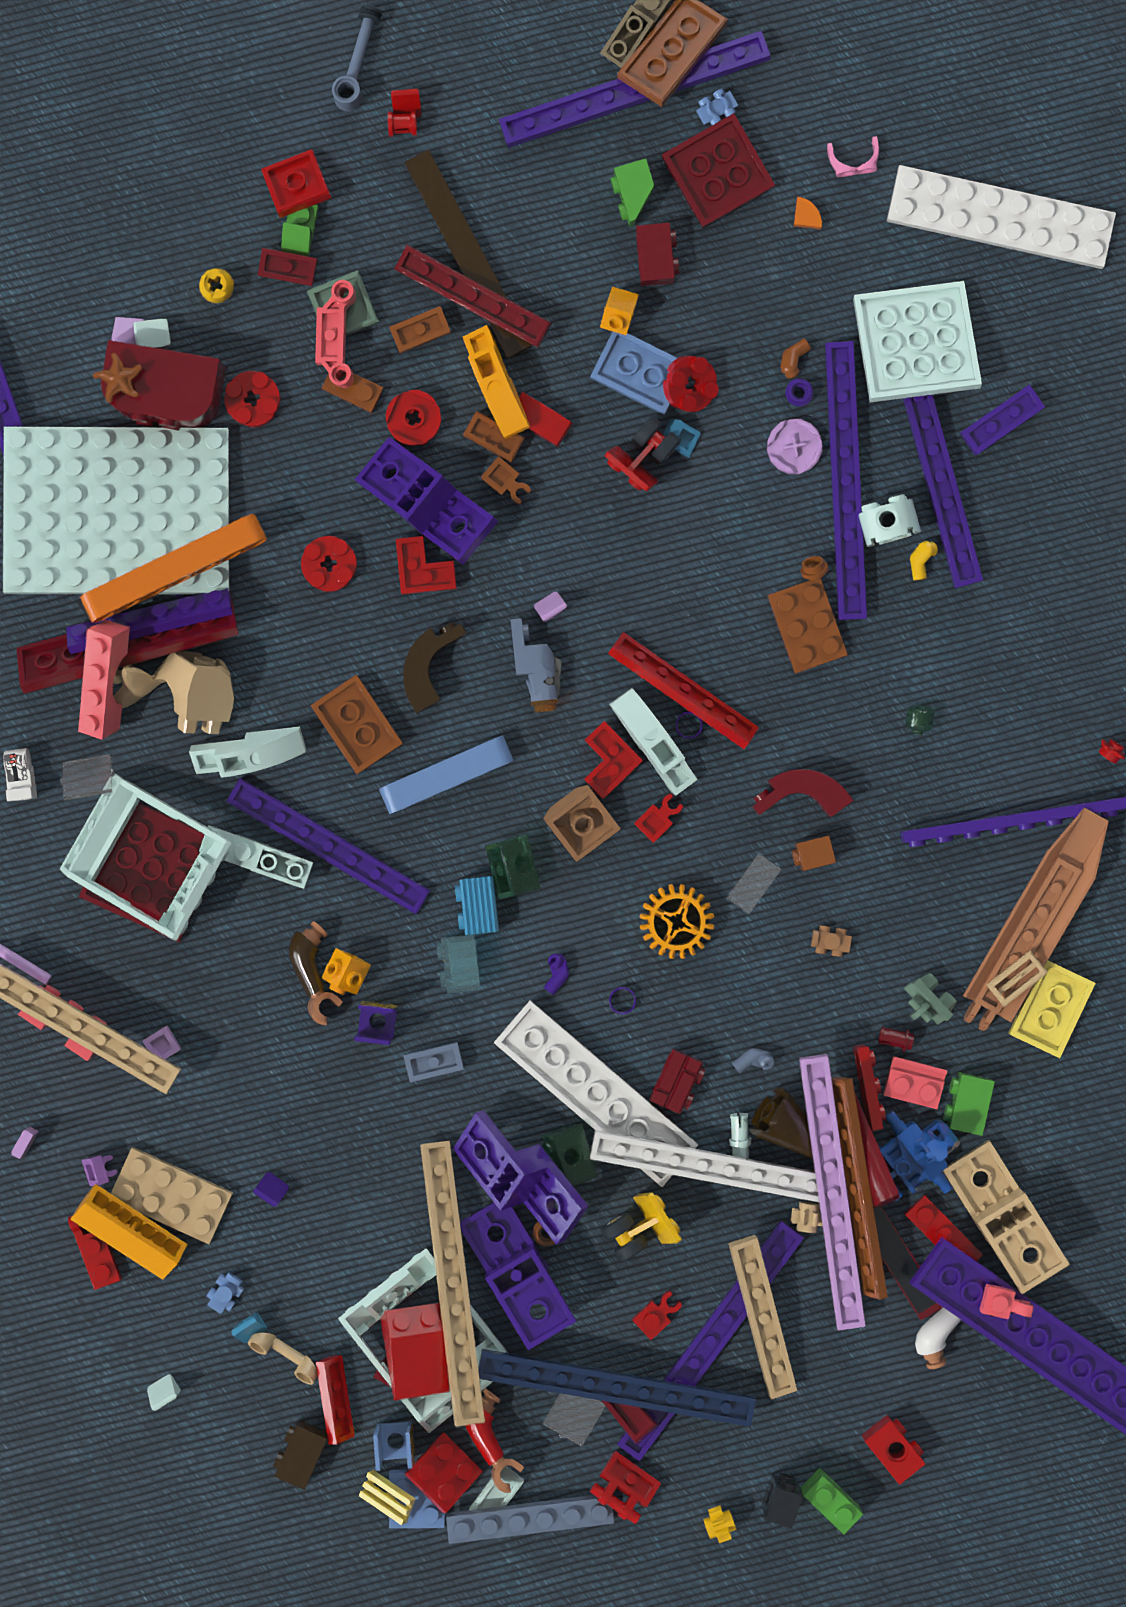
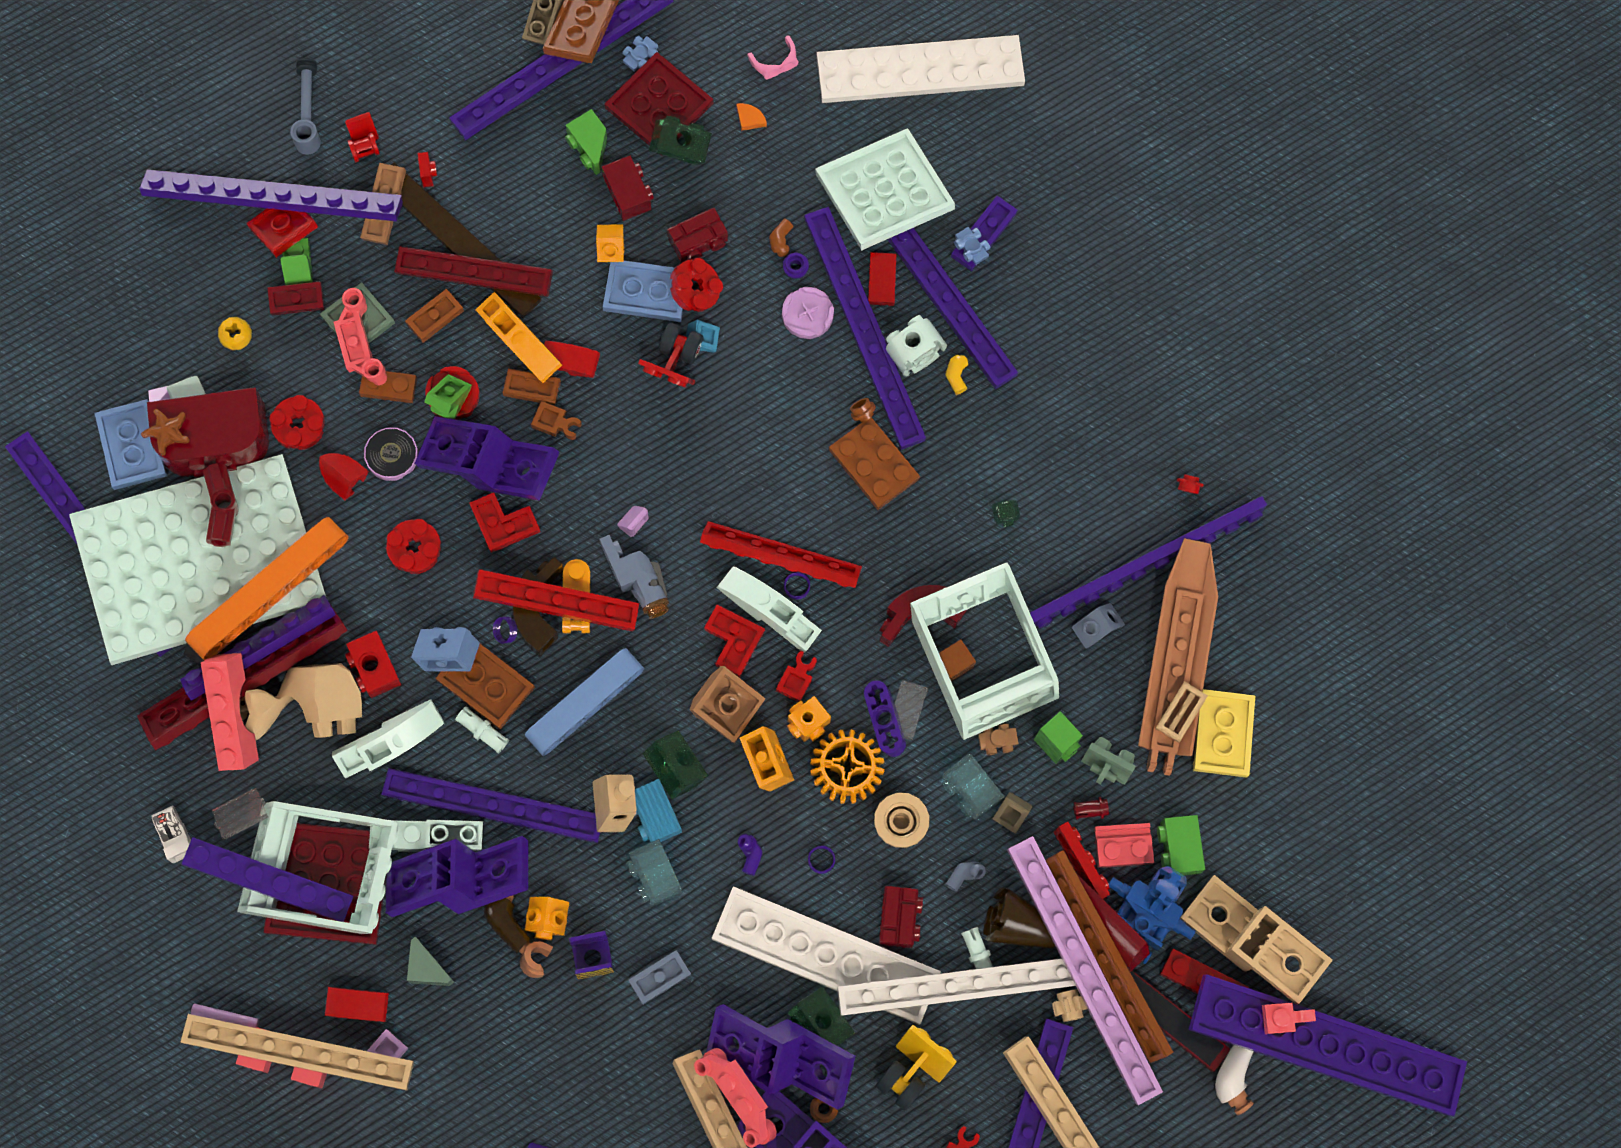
camera: 25 degrees left, 15 degrees down
(77, 357) = (128, 454): none -> medium blue plate
(94, 854) = (267, 880): none -> dark purple plate
(145, 994) = (356, 1004): none -> red slope
(155, 450) = (221, 519): none -> dark red piece
(218, 980) = (424, 968): none -> sand green slope
(264, 685) = (372, 648): none -> red brick
(273, 909) = (457, 876): none -> dark purple bracket
(280, 466) = (341, 473): none -> red brick
(294, 149) = (271, 195): none -> plate
(327, 682) = (445, 649): none -> medium blue brick
(334, 461) = (390, 454): none -> black tile
(340, 770) = (482, 729): none -> light aqua pin
(385, 669) = (509, 620): none -> dark purple axle
(404, 192) = (389, 181): none -> medium nougat tile
(407, 423) = (448, 396): none -> bright green slope
(443, 884) = (614, 797): none -> tan torso
(448, 669) = (555, 600): none -> red plate
(459, 169) = (427, 169): none -> red plate
(471, 666) = (577, 577): none -> light orange plate
(471, 1199) = (740, 1094): none -> coral plate
(601, 890) = (766, 759): none -> light orange brick
(664, 868) = (812, 711): none -> light orange brick
(710, 330) = (698, 235): none -> dark red brick
(710, 992) = (901, 820): none -> tan piece
(736, 867) = (893, 726): none -> dark purple beam
(737, 233) = (665, 140): none -> clear green brick
(789, 981) = (971, 787): none -> clear light blue brick
(820, 1015) = (1012, 812): none -> dark tan slope
(850, 906) = (1005, 698): none -> light aqua window
(881, 434) = (882, 279): none -> red tile
(889, 964) = (1059, 738): none -> bright green brick
(968, 862) = (1097, 625): none -> sand blue bracket
(984, 438) = (972, 247): none -> medium blue piece

